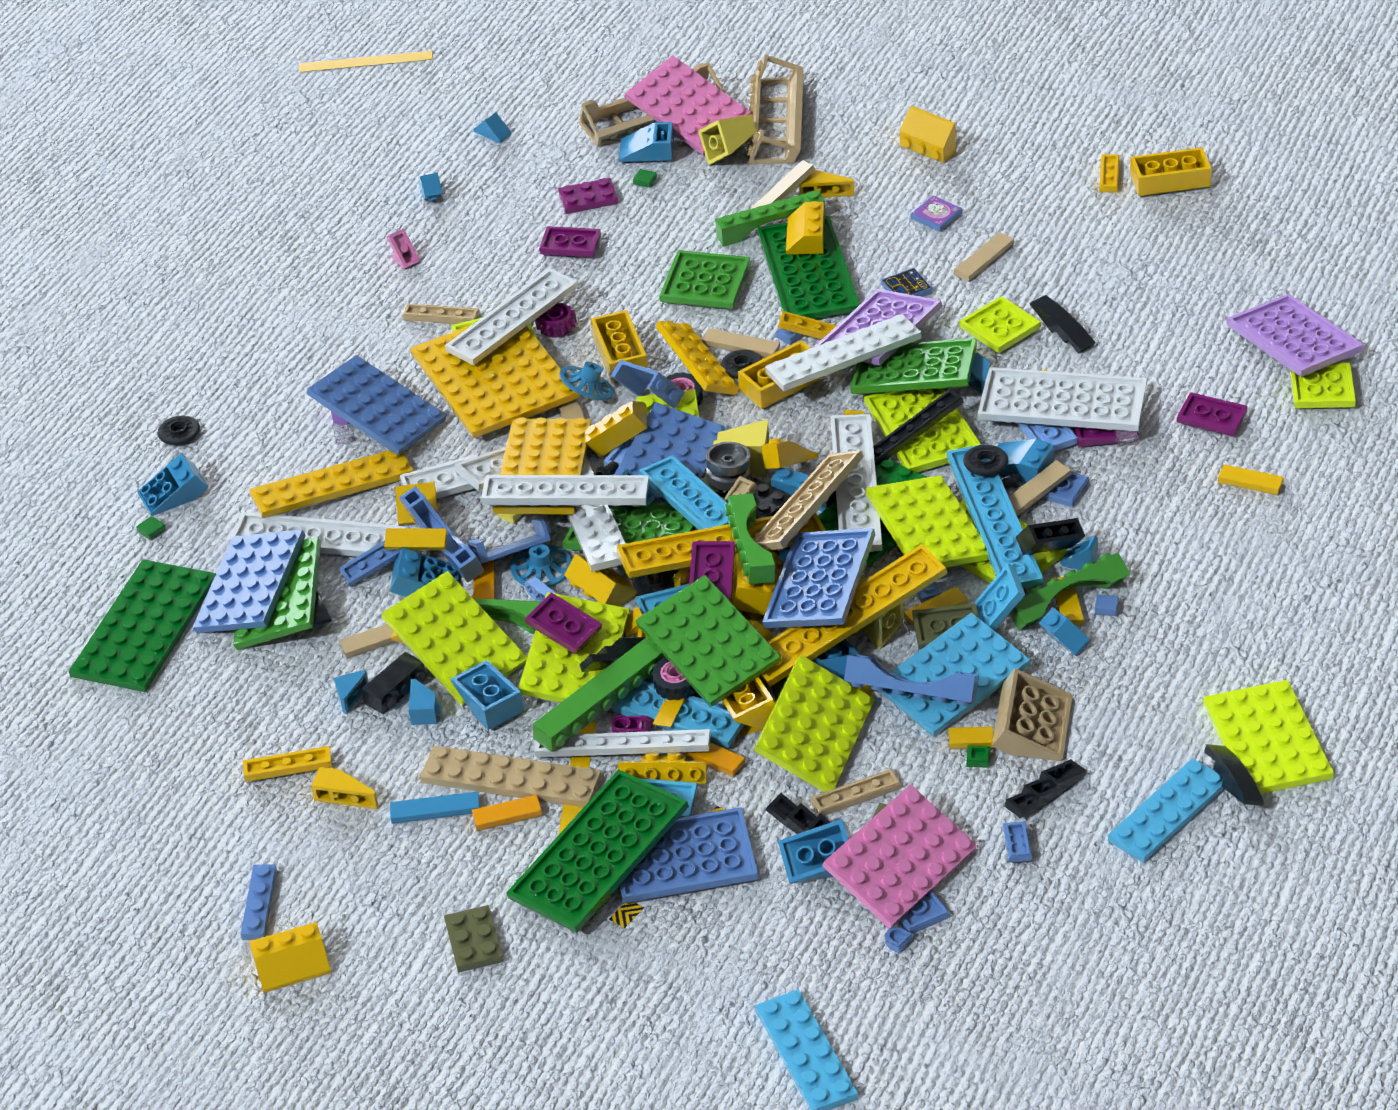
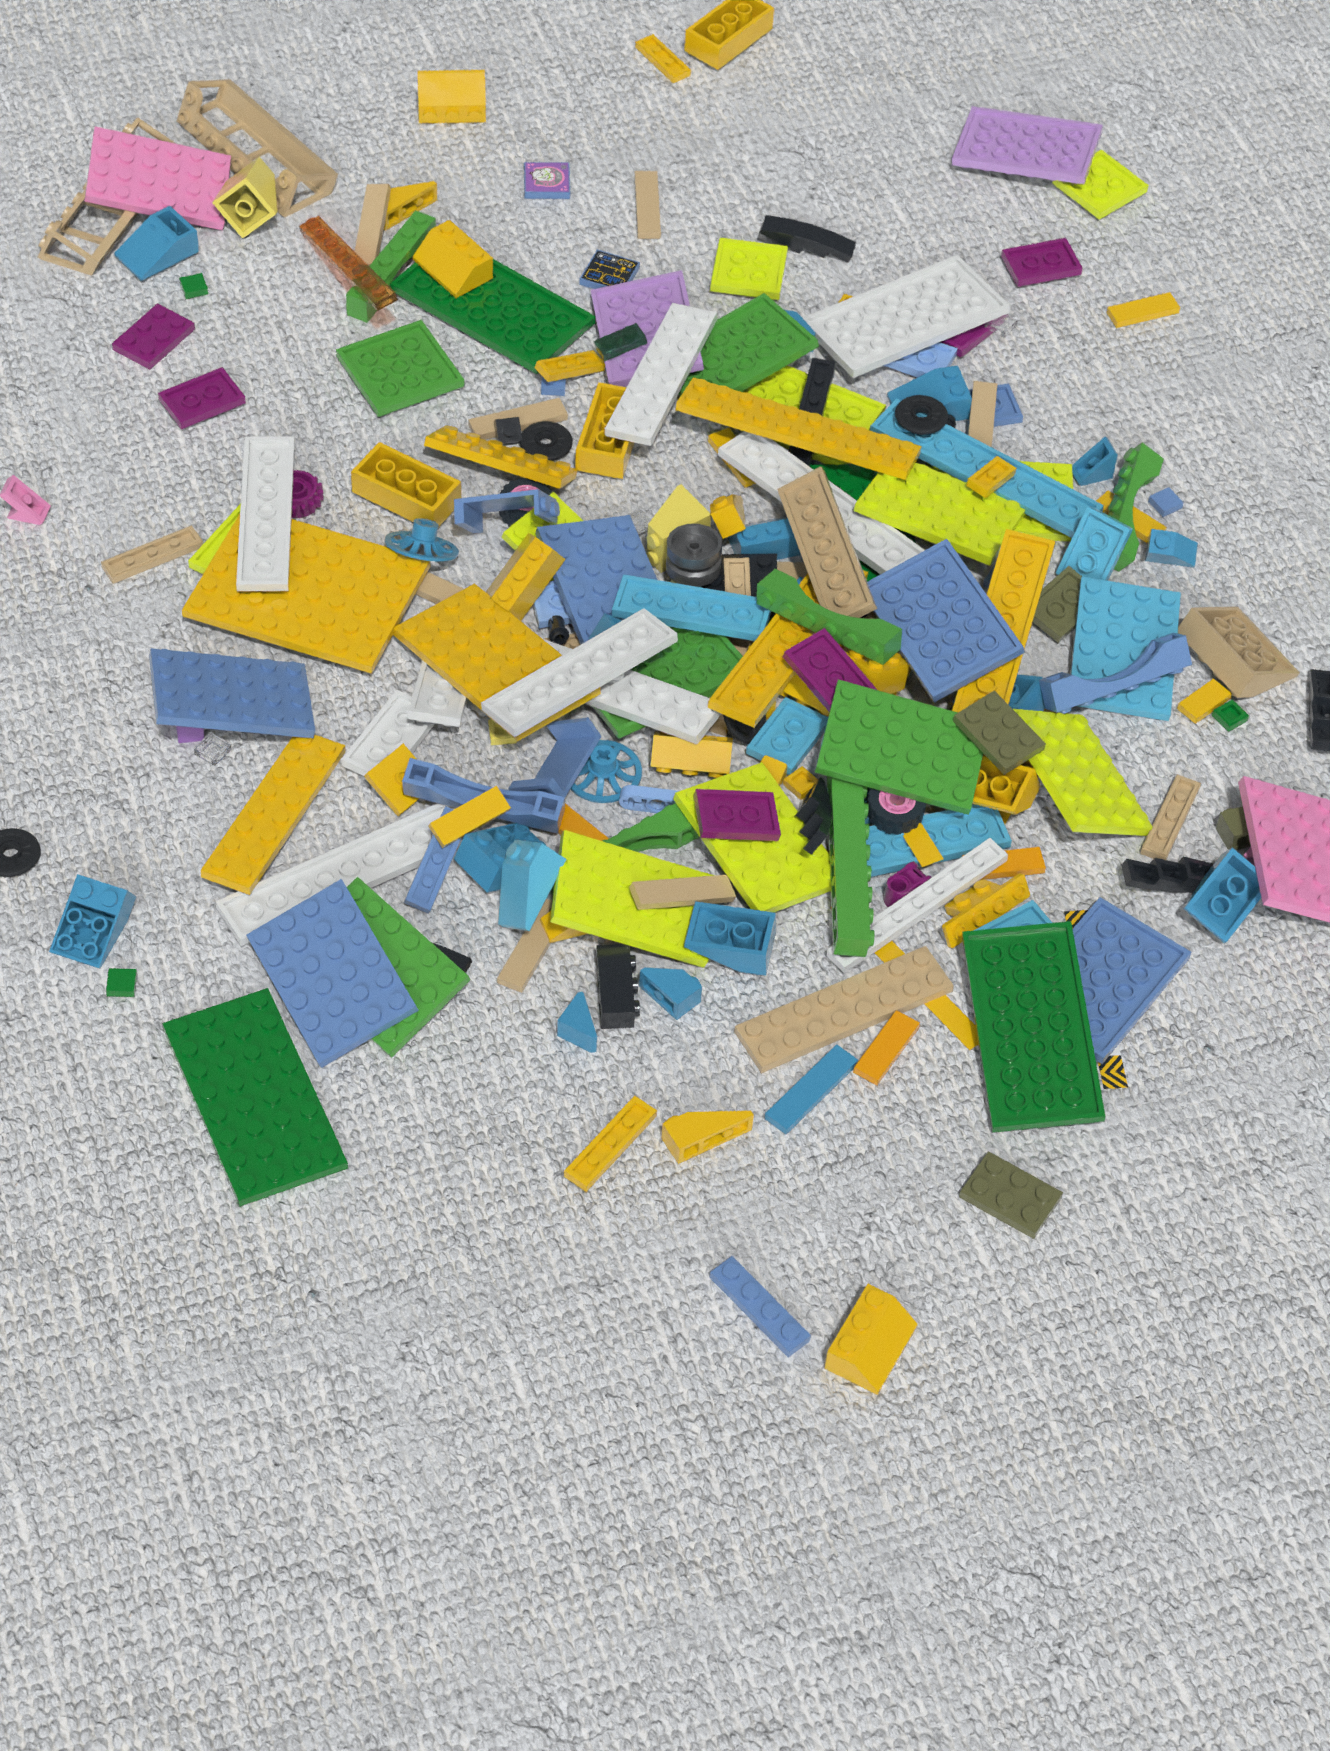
camera: 50 degrees left, 10 degrees up
(407, 582) = (526, 882): none -> medium azure slope
(485, 649) = (682, 891): none -> tan tile
(722, 345) = (508, 430): none -> black plate
(737, 201) = (348, 263): none -> clear orange plate
(770, 662) = (999, 732): none -> olive plate
(843, 324) = (620, 342): none -> clear green plate
(891, 428) = (799, 428): none -> yellow plate
(980, 518) = (991, 476): none -> yellow plate
(1050, 536) = (1071, 460): black brick -> none

